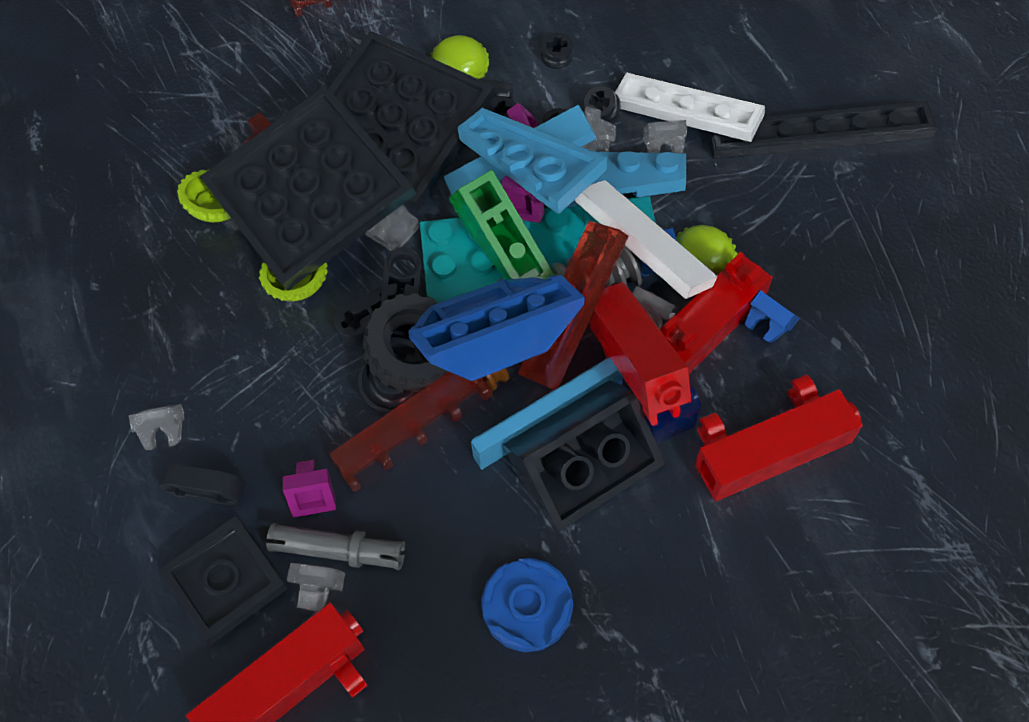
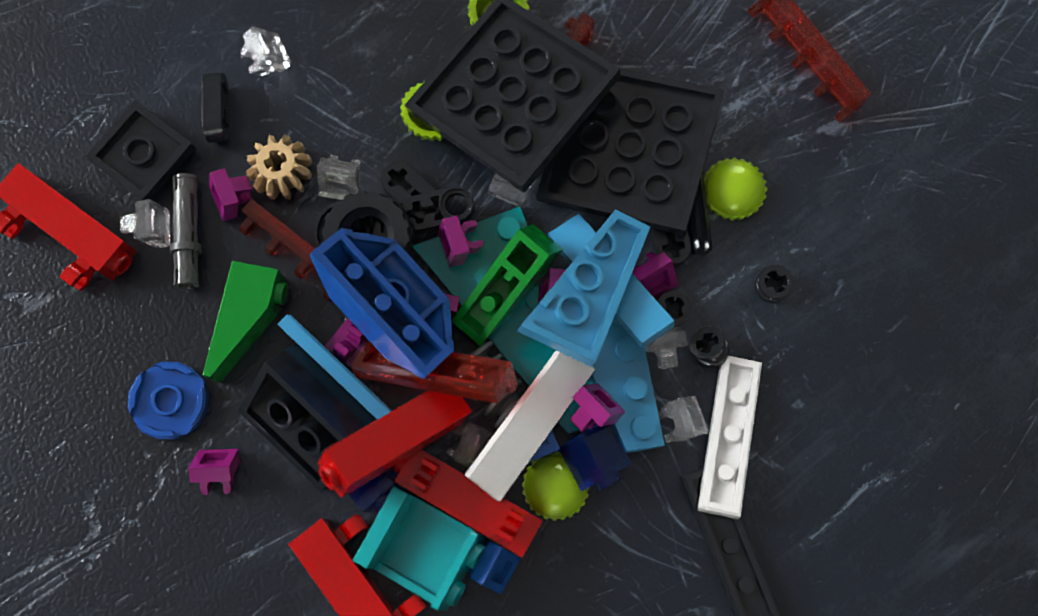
camera: 75 degrees right, 15 degrees up
(302, 415) = (266, 162): none -> tan gear
(333, 374) = (338, 177): none -> clear tile
(441, 272) = (454, 242): none -> magenta tile
(446, 491) = (246, 310): none -> green slope
(511, 396) = (347, 343): none -> magenta tile
(618, 558) = (214, 466): none -> magenta tile
(644, 186) = (595, 407): none -> magenta tile
(686, 205) = (595, 457): none -> clear blue brick
(749, 367) = (421, 548): none -> teal panel

